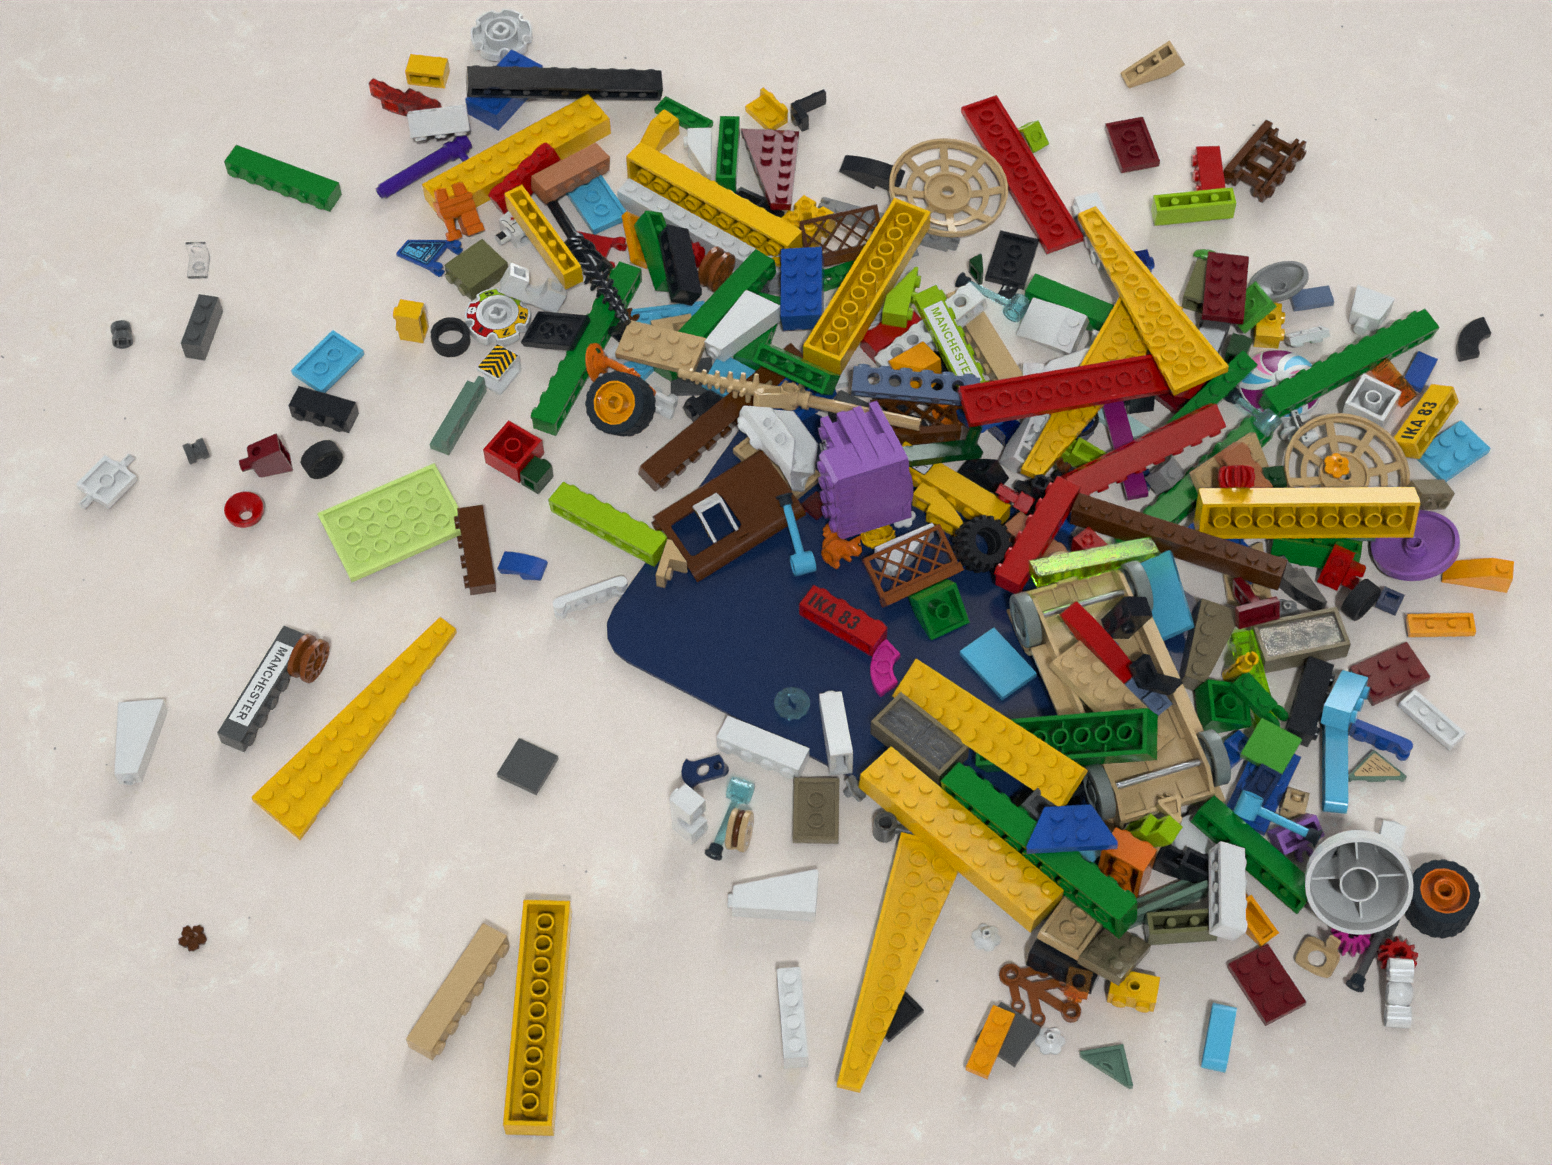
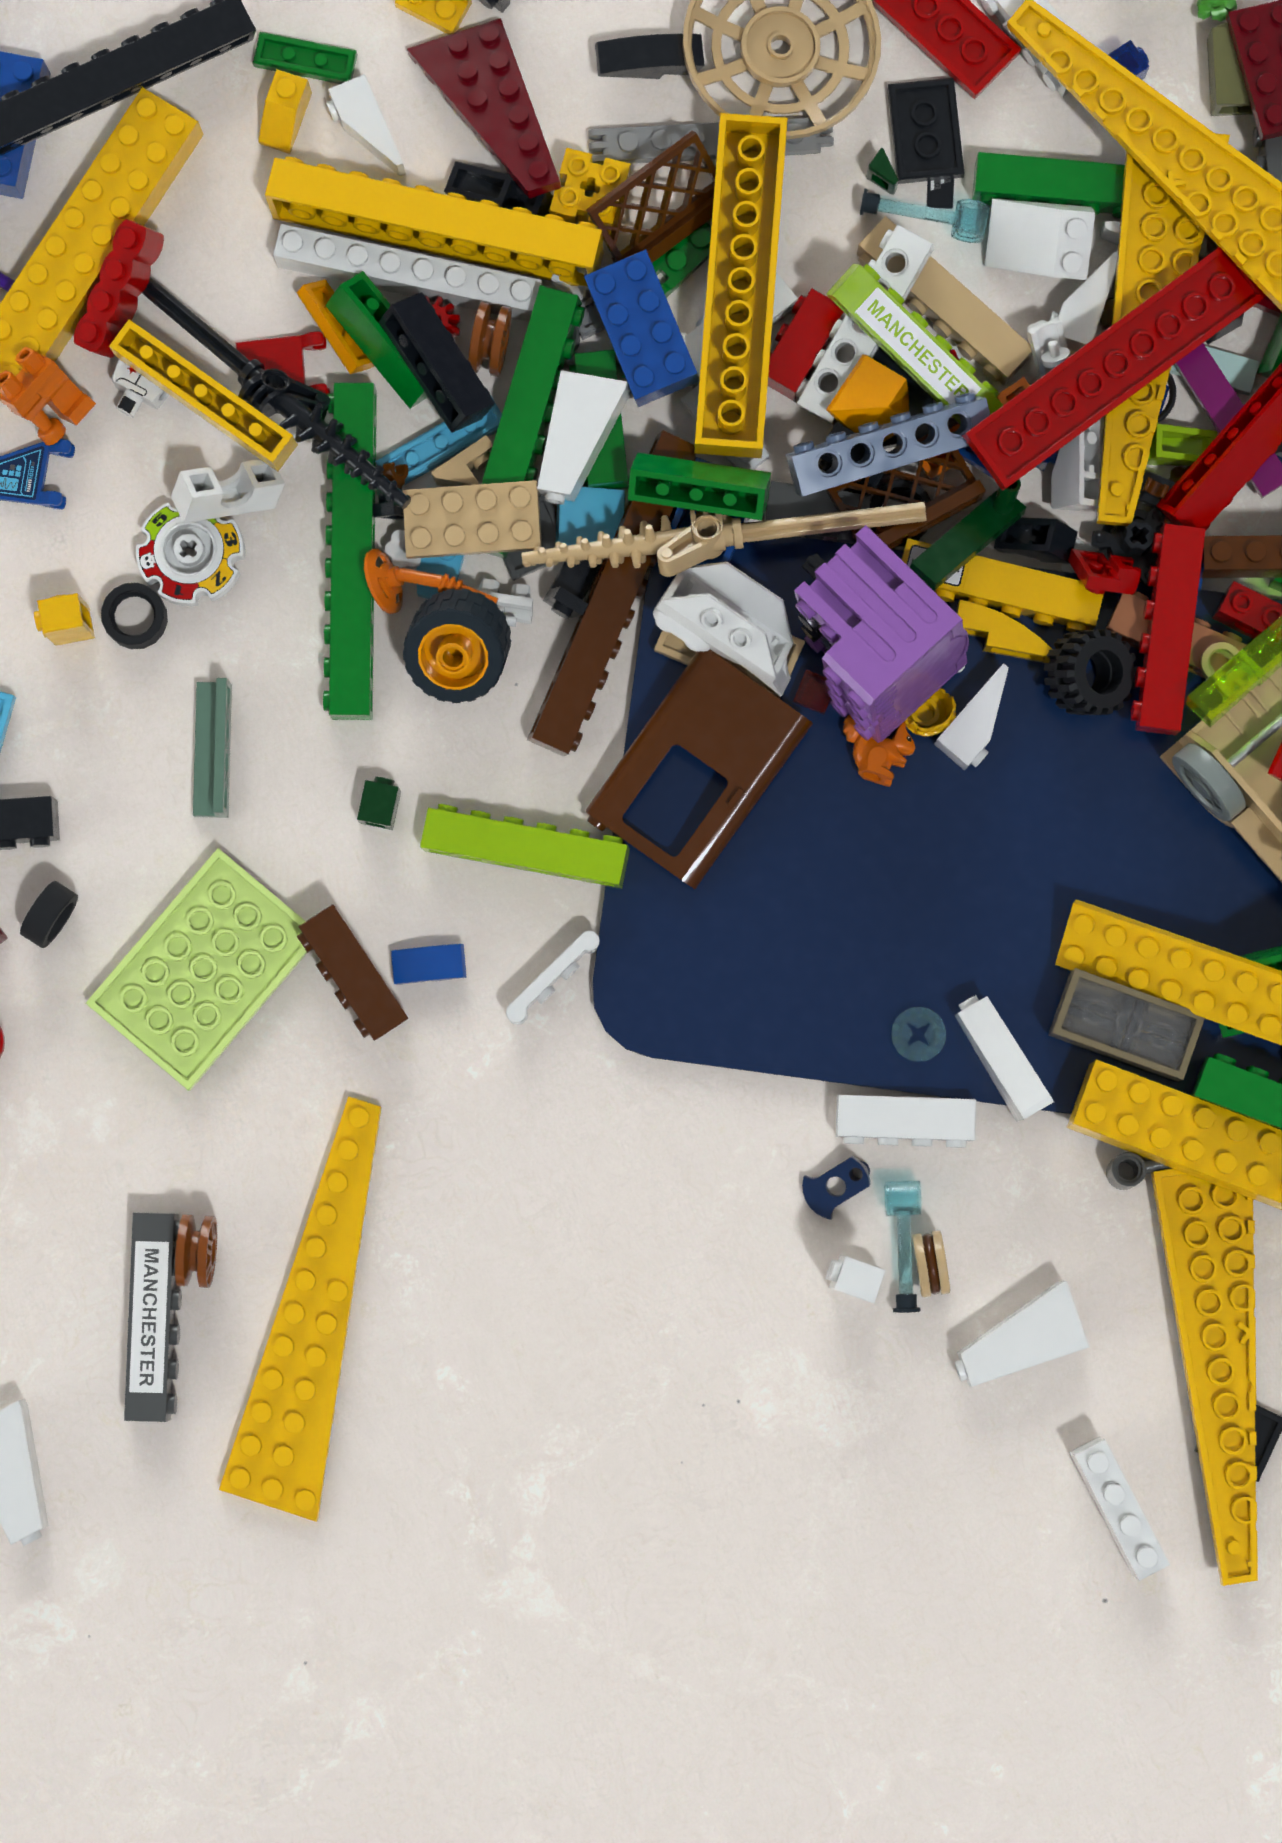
camera: 20 degrees left, 25 degrees up
(192, 937) = (243, 1727): reddish brown plant -> none
(458, 991) = (650, 1658): tan brick -> none
(476, 269) = (116, 480): olive brick -> none
(500, 368) = (237, 646): piece -> none
(512, 450) = (328, 782): red brick -> none
(527, 766) = (585, 1279): dark grey tile -> none
(538, 1018) = (779, 1653): yellow brick -> none
(555, 331) = (292, 544): black tile -> none
(570, 173) = (186, 252): nougat brick -> none
(597, 205) = (232, 272): medium azure plate -> none
(670, 561) = (647, 871): tan slope -> none
(706, 504) = (682, 767): white piece -> none
(728, 152) = (412, 111): green brick -> none
(803, 561) = (837, 798): medium azure piece -> none
(816, 811) = (1020, 1183): dark tan plate -> none
(843, 620) = (937, 872): red brick -> none
(853, 789) = (1057, 1130): light grey plant -> none
(882, 668) = (1021, 922): dark pink tile -> none
(899, 300) = (799, 299): lime slope -> none
(921, 582) = (1018, 771): dark orange fence -> none
(939, 608) = (1065, 796): green slope -> none
(998, 663) = (1182, 849): medium azure tile -> none

